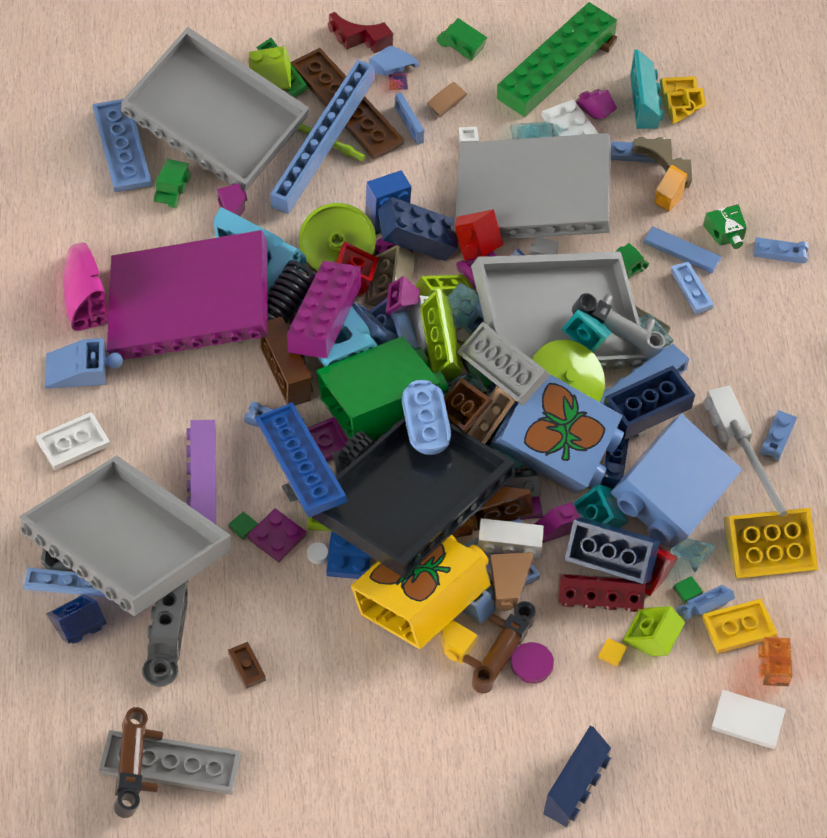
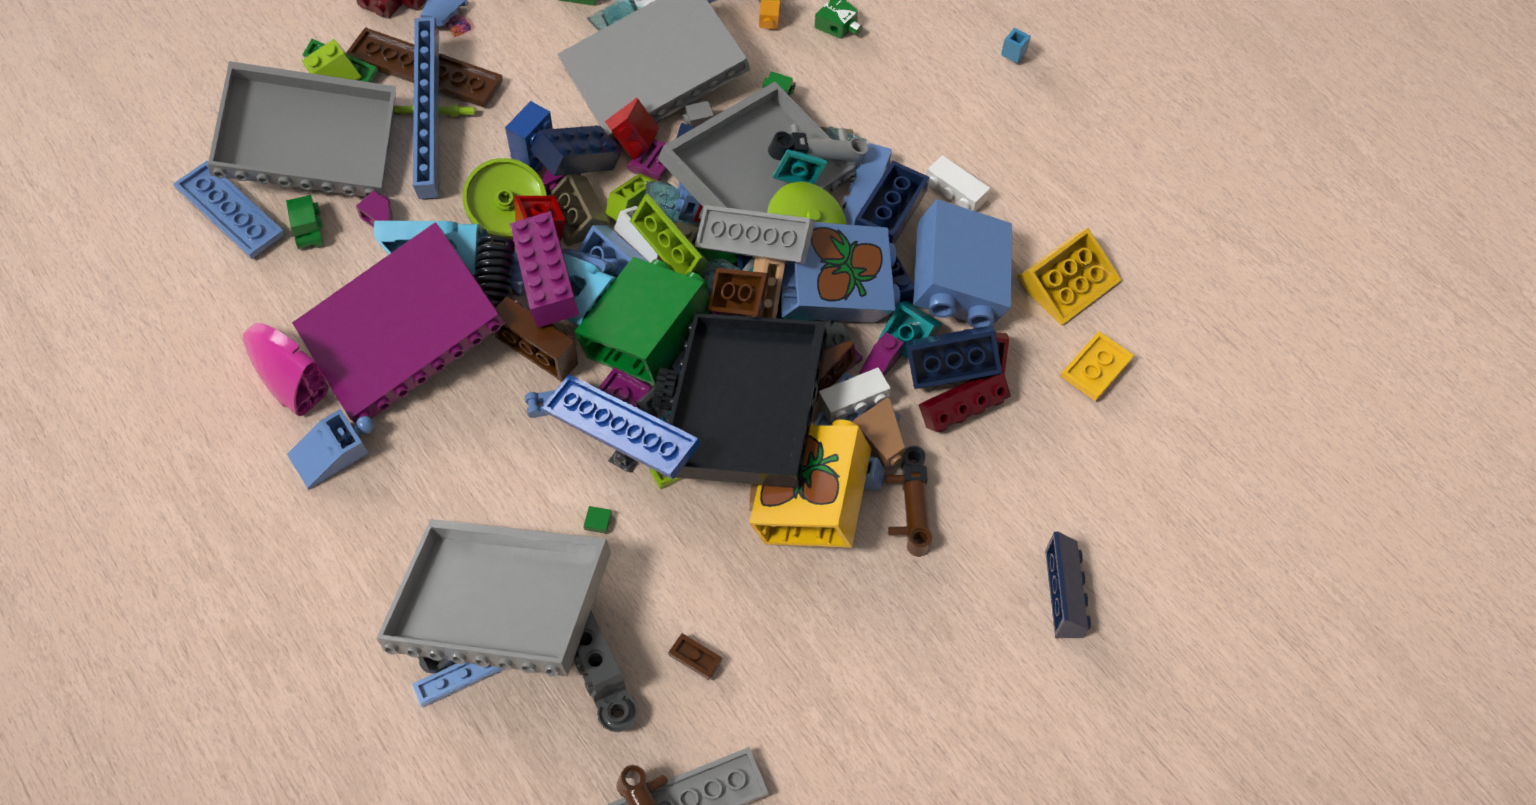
camera: 30 degrees left, 5 degrees up
(73, 441) = (373, 528): white plate -> none
(77, 618) = (498, 707): clear blue slope -> none
(202, 467) = (522, 486): medium lavender brick -> none
(276, 535) = (635, 511): magenta plate -> none
(317, 553) = (686, 507): white tile -> none
(346, 559) = (717, 498): blue plate -> none
(401, 296) = (605, 219): magenta slope -> none
(409, 118) = (493, 54): medium blue tile -> none
(426, 417) = (714, 321): light blue tile -> none
(446, 98) = (515, 20): medium nougat slope -> none
(457, 641) = (873, 520): yellow slope -> none
(468, 134) = (557, 44): white plate -> none
(532, 662) = (949, 500): magenta tile -> none
(612, 652) = (1009, 450): yellow tile -> none
(654, 630) = (1032, 410): lime slope -> none
(682, 249) = (813, 57): medium blue tile -> none
(687, 589) = (1031, 357): green tile -> none
(691, 287) = (846, 86): light blue plate -> none
(694, 551) = (1017, 319): clear light blue slope -> none
(705, 602) = (1056, 359): medium blue plate -> none
(742, 438) = (988, 197): light grey bar -> none
(748, 719) = (1162, 446): white tile -> none
(776, 661) = (1151, 380): clear orange brick -> none
(778, 435) = (1007, 179): medium blue plate -> none
(781, 250) = (895, 18): medium blue plate -> none

